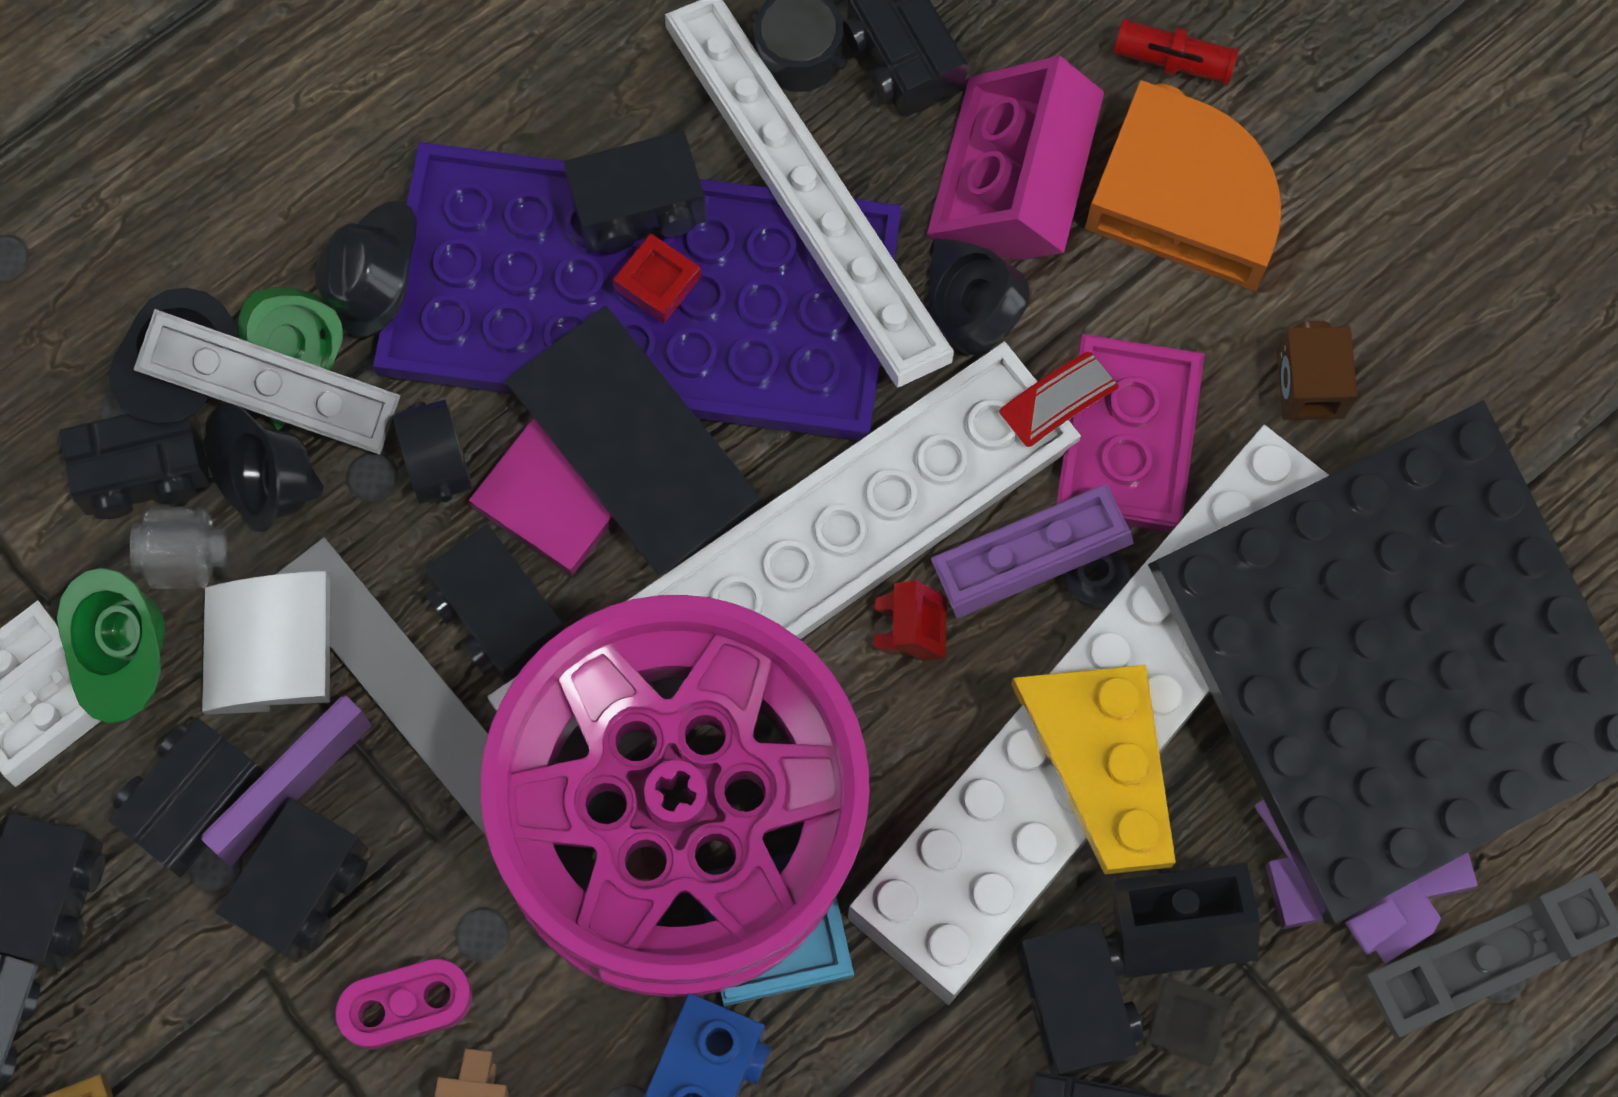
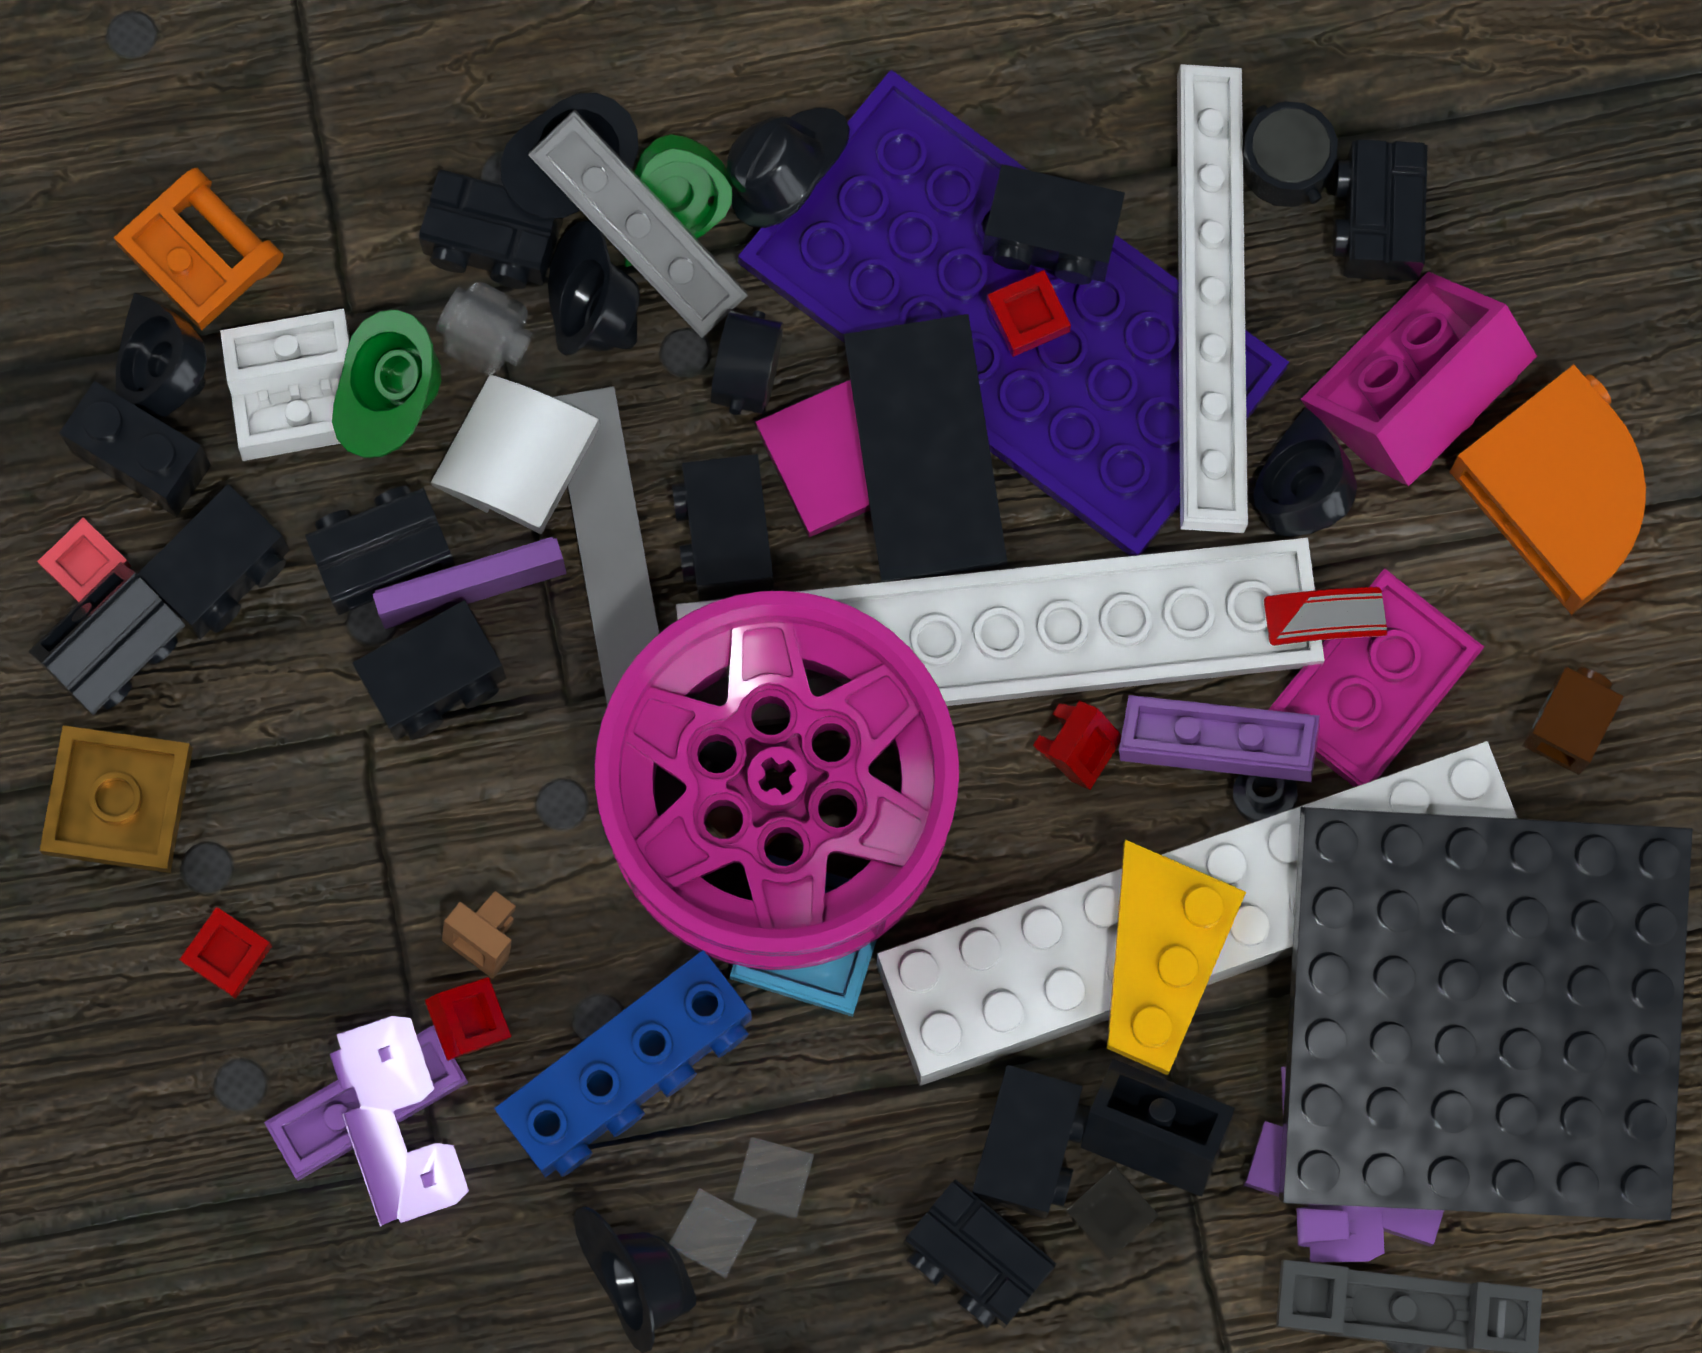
camera: 30 degrees right, 5 degrees up
(405, 1003) = (467, 825): dark pink plate -> none
(1216, 63) = (1631, 351): red pin -> none

